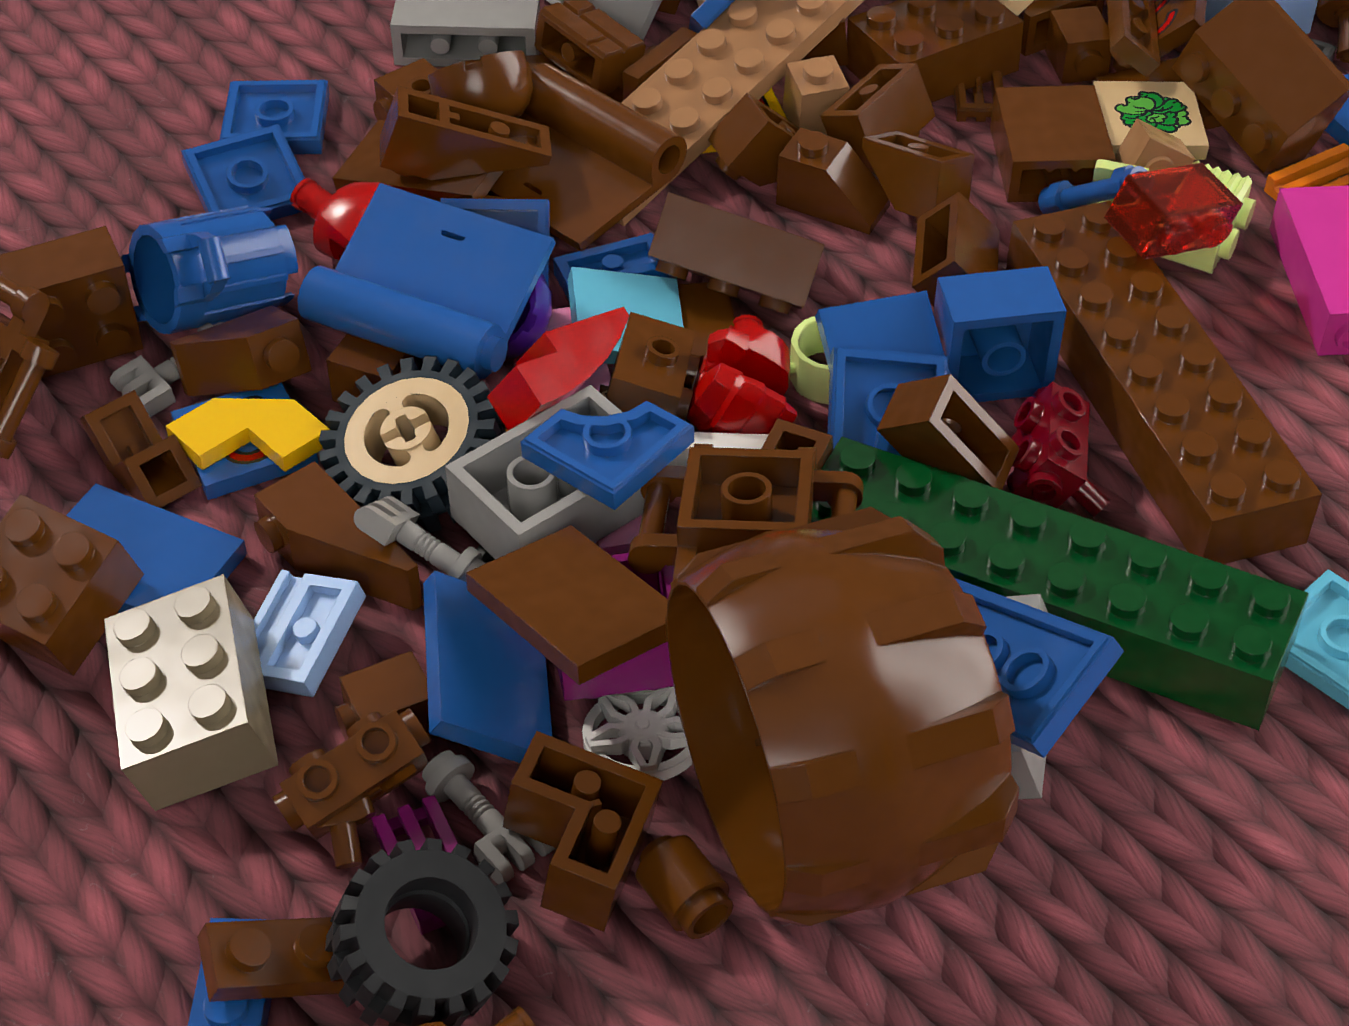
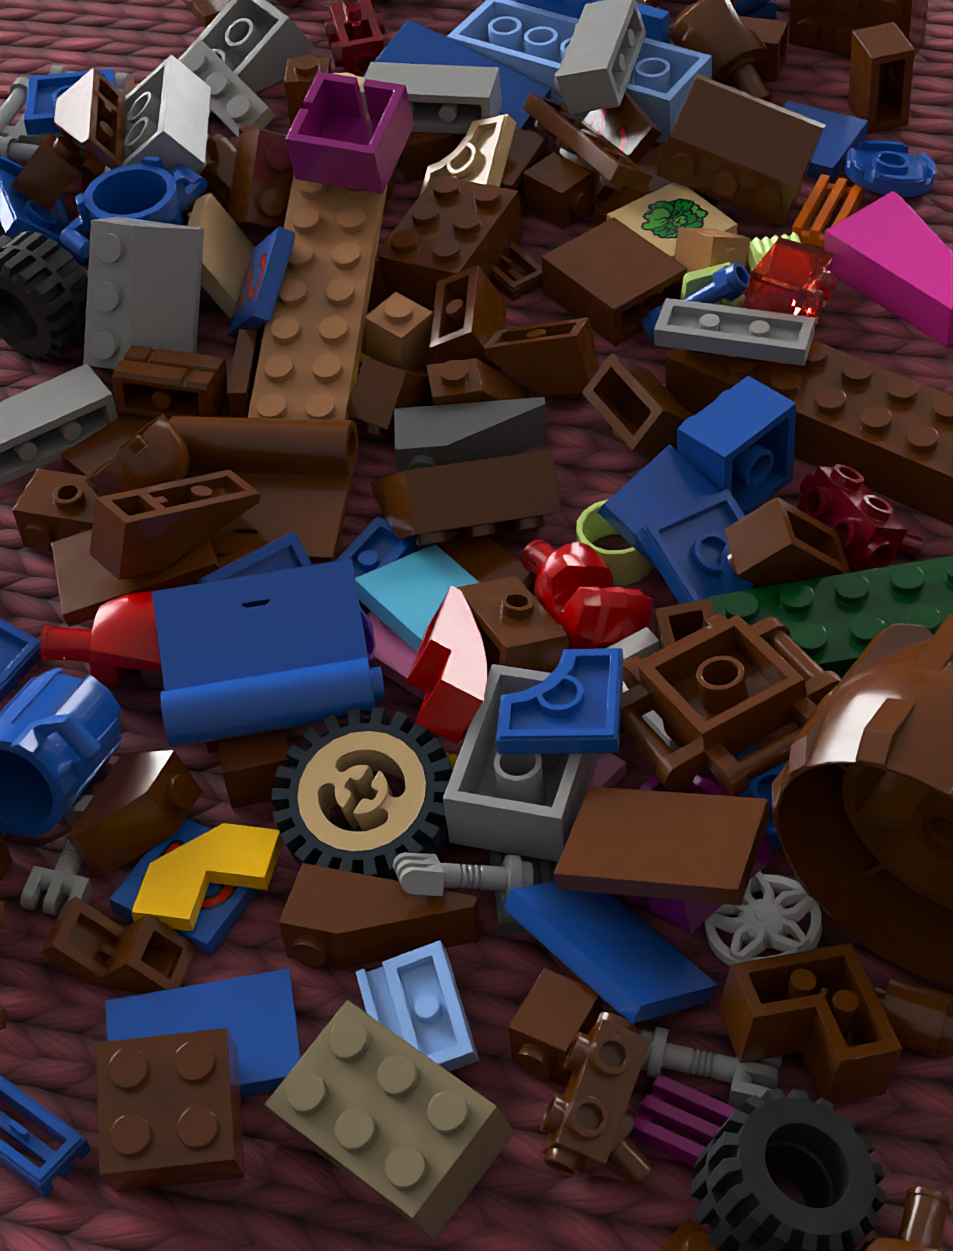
camera: 30 degrees left, 0 degrees up
(794, 203) = (467, 431): none -> dark grey slope
(1082, 226) = (734, 331): none -> light grey plate

